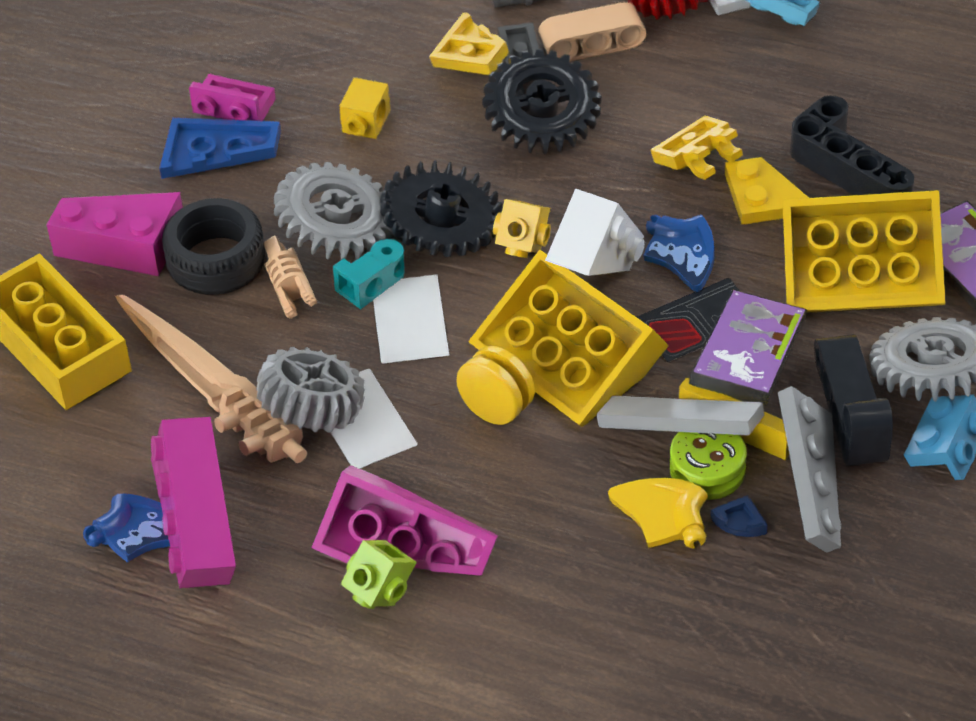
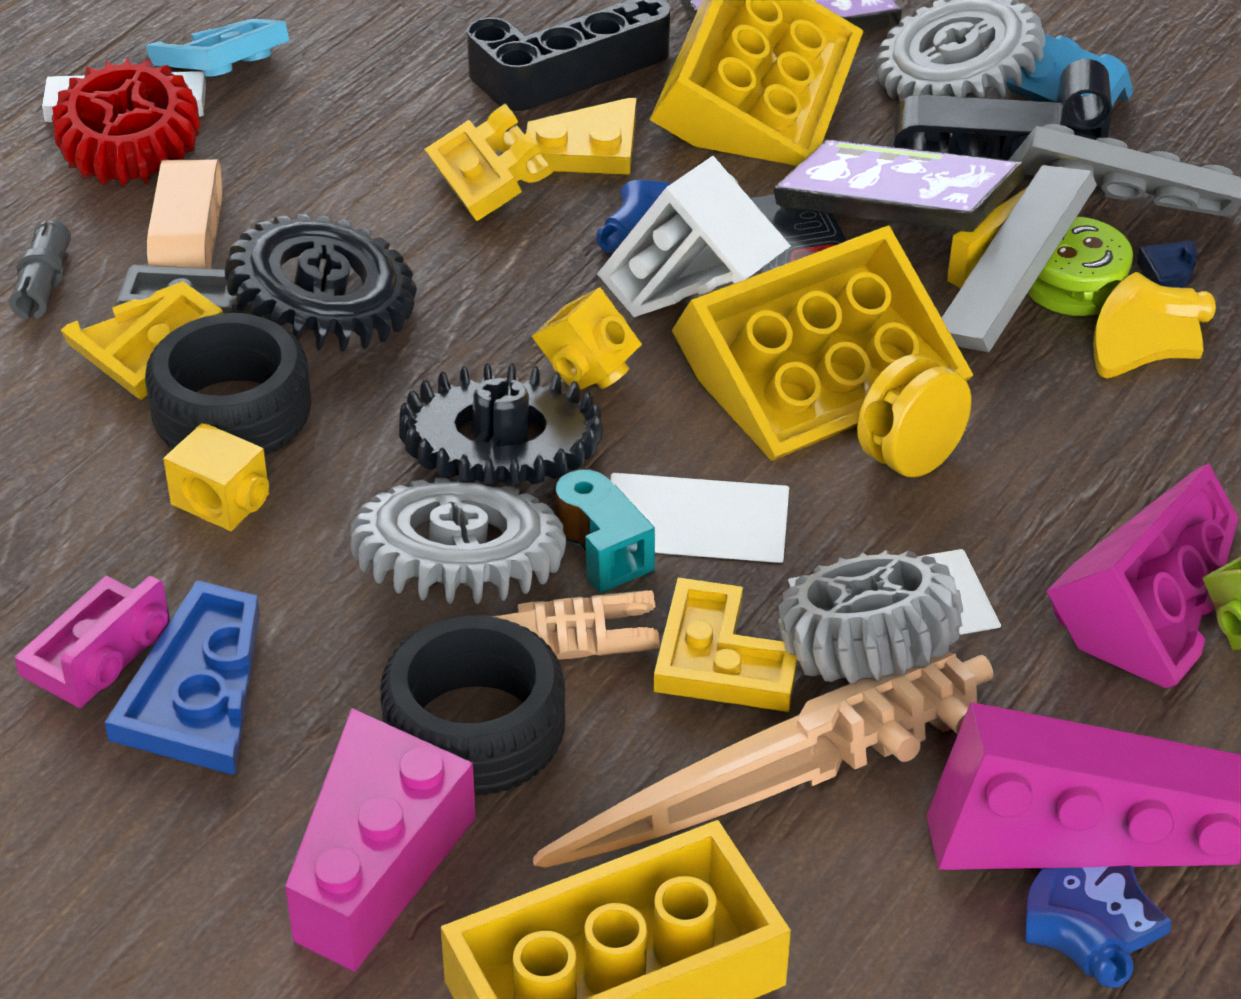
camera: 80 degrees left, 5 degrees down
(291, 329) = (710, 662): none -> yellow plate
(435, 114) = (225, 350): none -> black tyre

